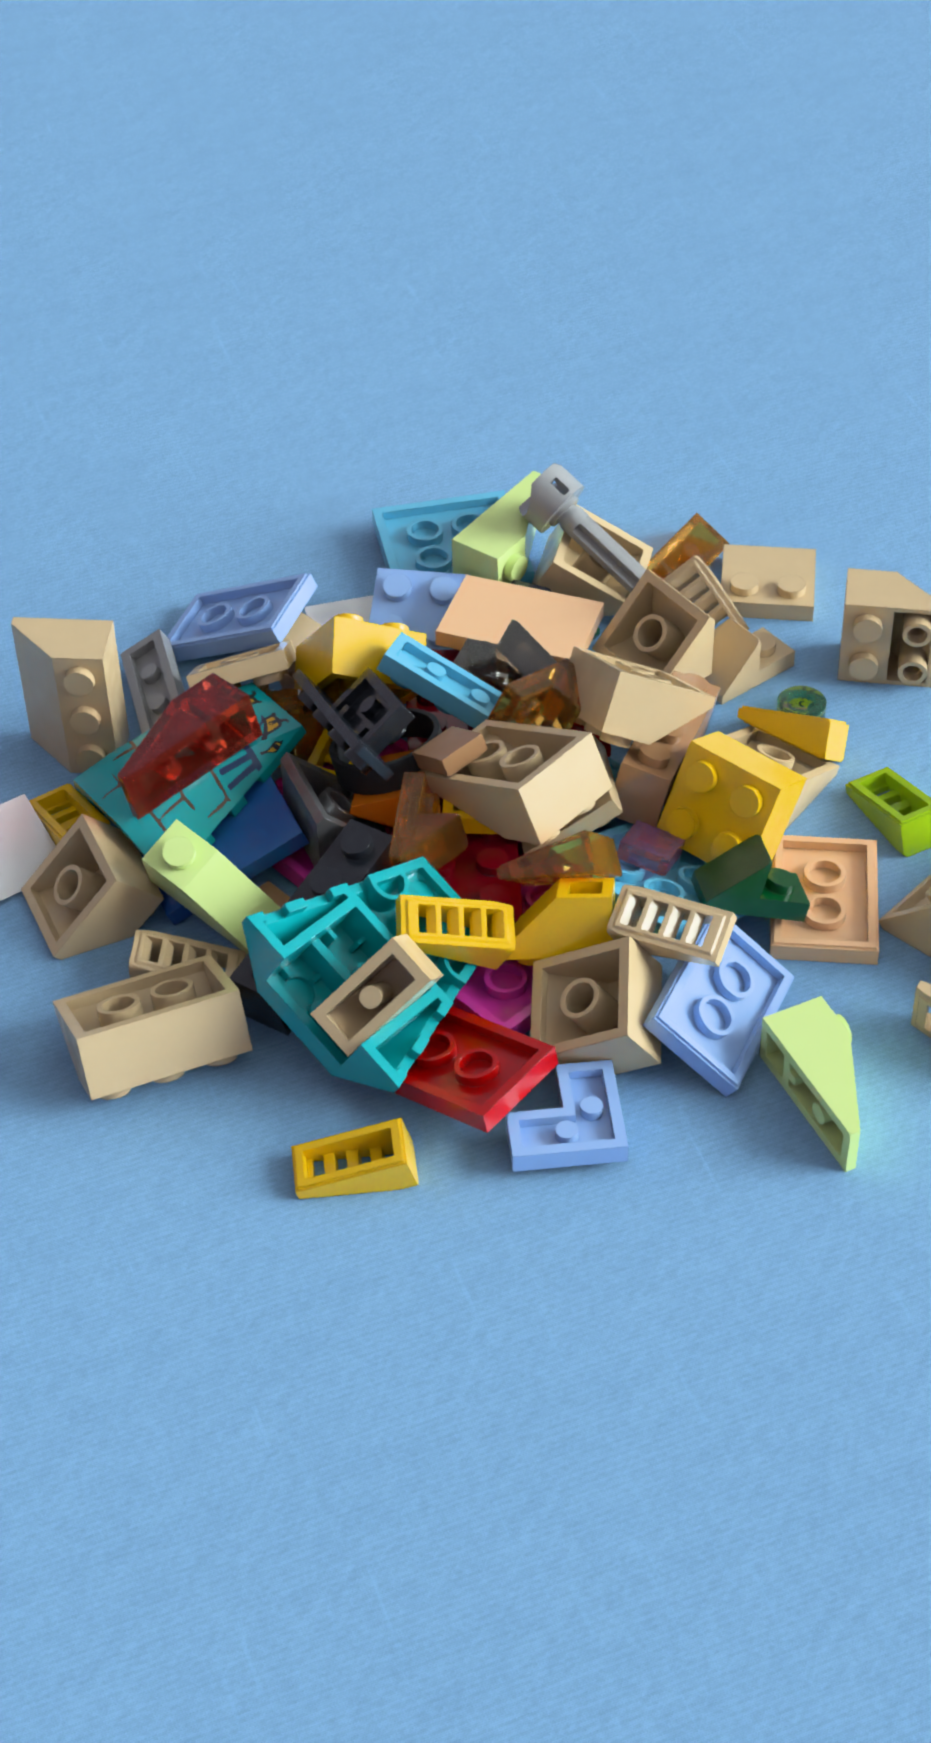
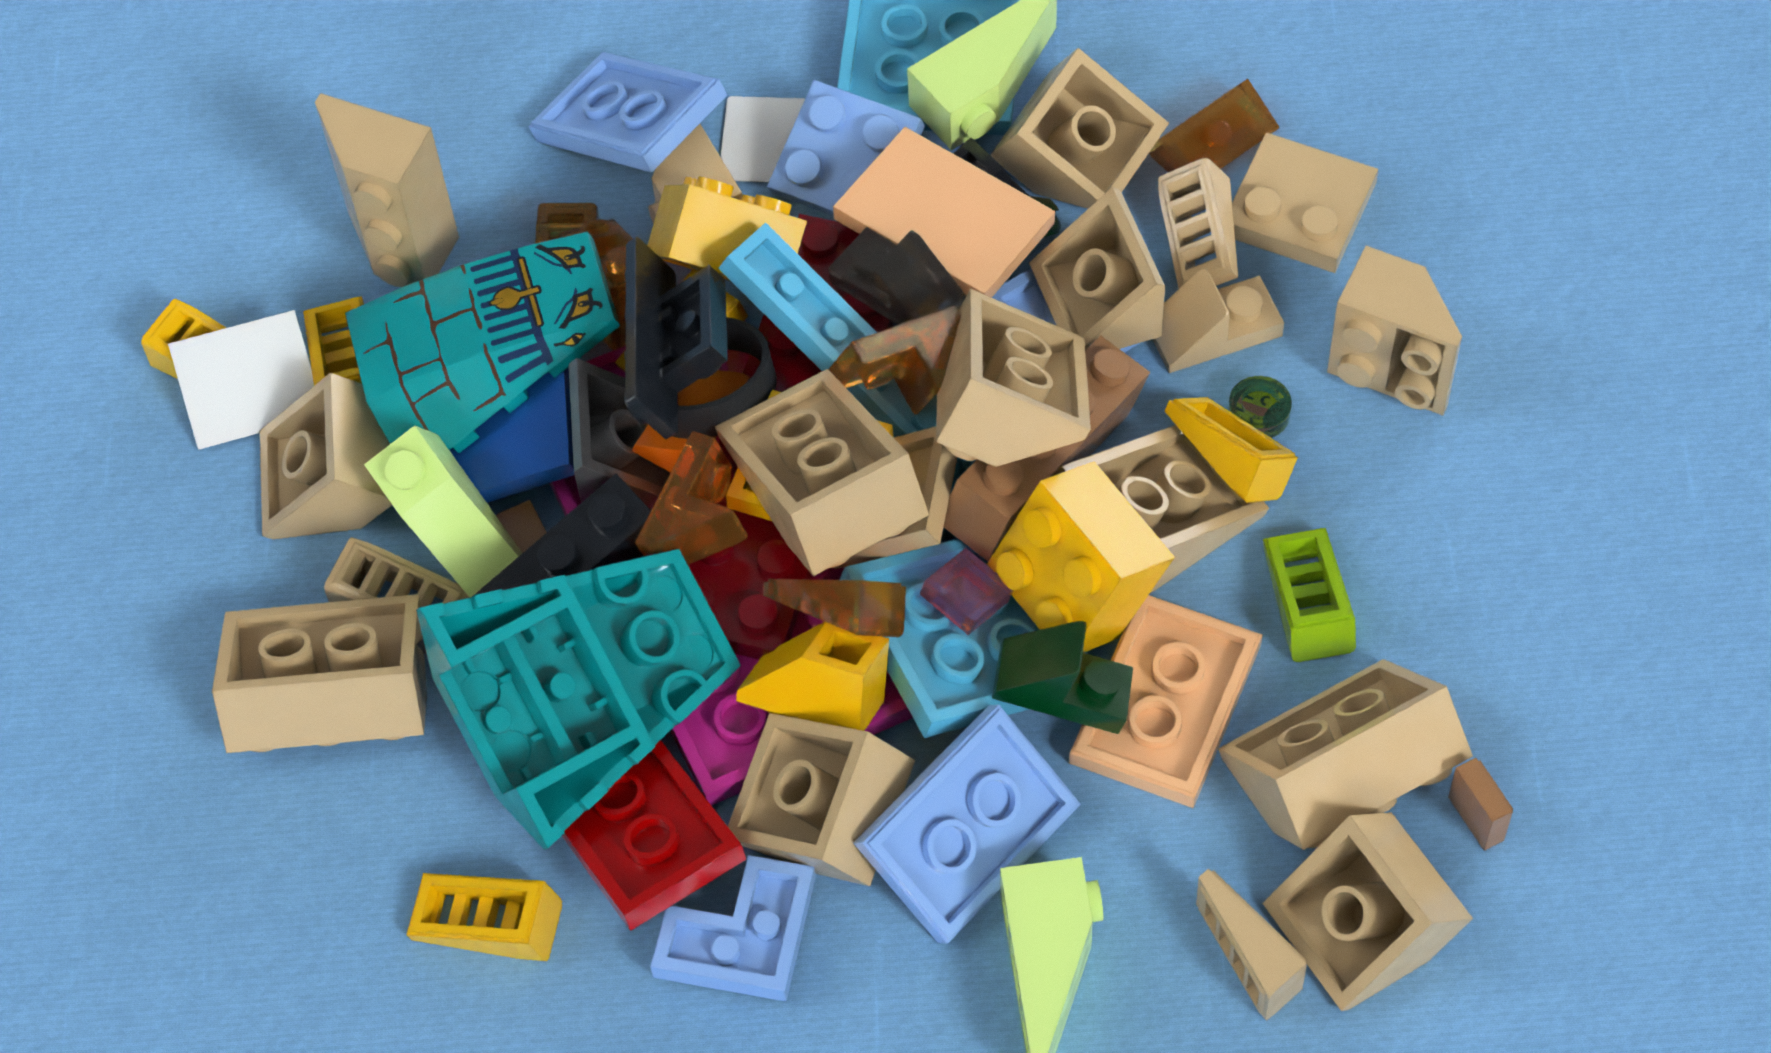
camera: 20 degrees right, 15 degrees up
(152, 677) = (503, 184): light grey plate -> none
(187, 742) = (463, 318): clear red slope -> none
(261, 665) = (587, 203): tan plate -> none
(376, 993) = (558, 726): tan slope -> none
(450, 751) = (756, 415): medium nougat tile -> none
(489, 924) = (713, 641): yellow slope -> none
(557, 504) = (1042, 50): light grey piece -> none
(638, 914) = (892, 701): tan slope -> none

